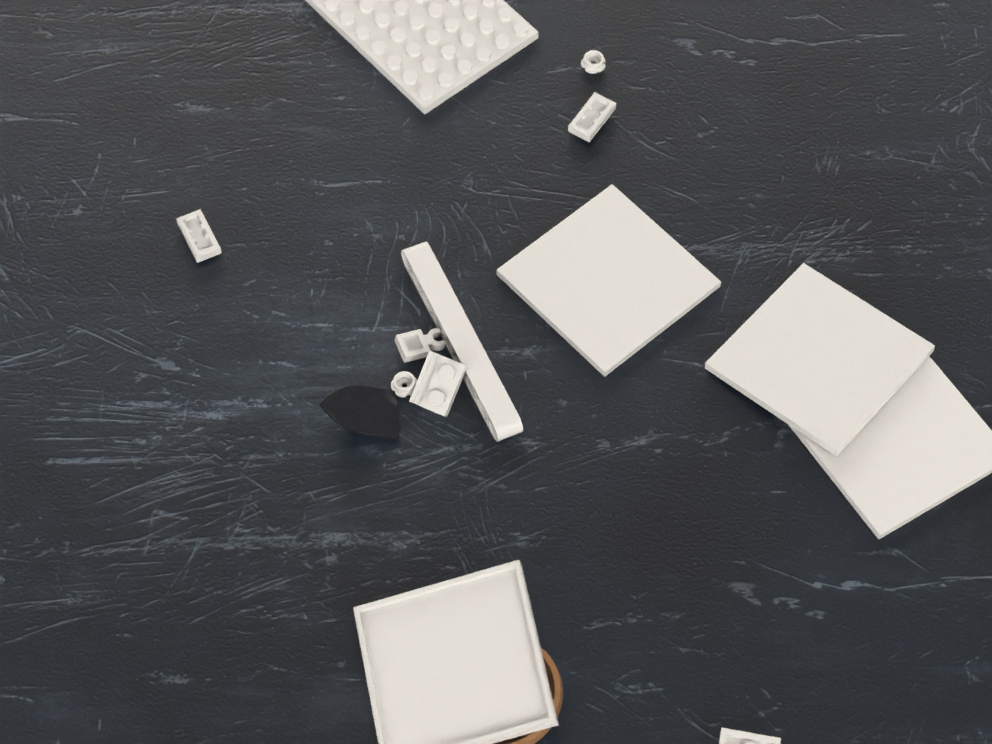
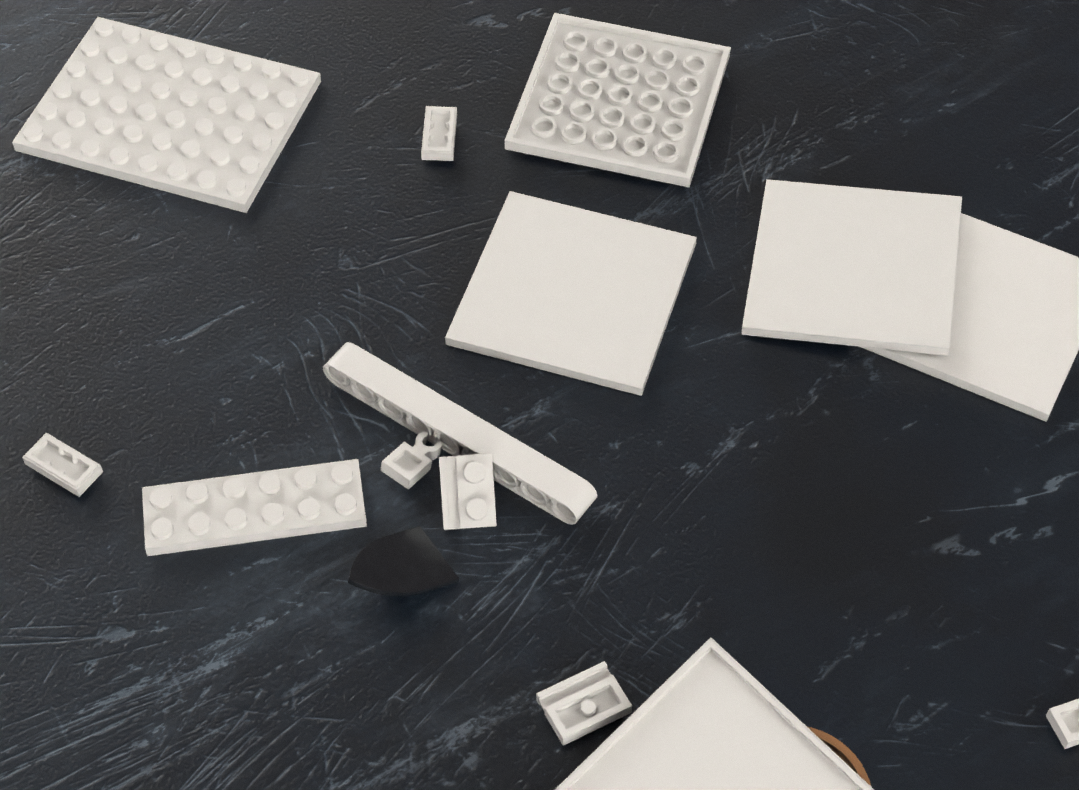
camera: 30 degrees left, 5 degrees down
(300, 324) = (253, 507): none -> white plate
(403, 378) = (421, 506): white plate -> none
(421, 560) = (584, 703): none -> white plate
(593, 62) = (401, 78): white plate -> none
(740, 150) = (619, 99): none -> white plate

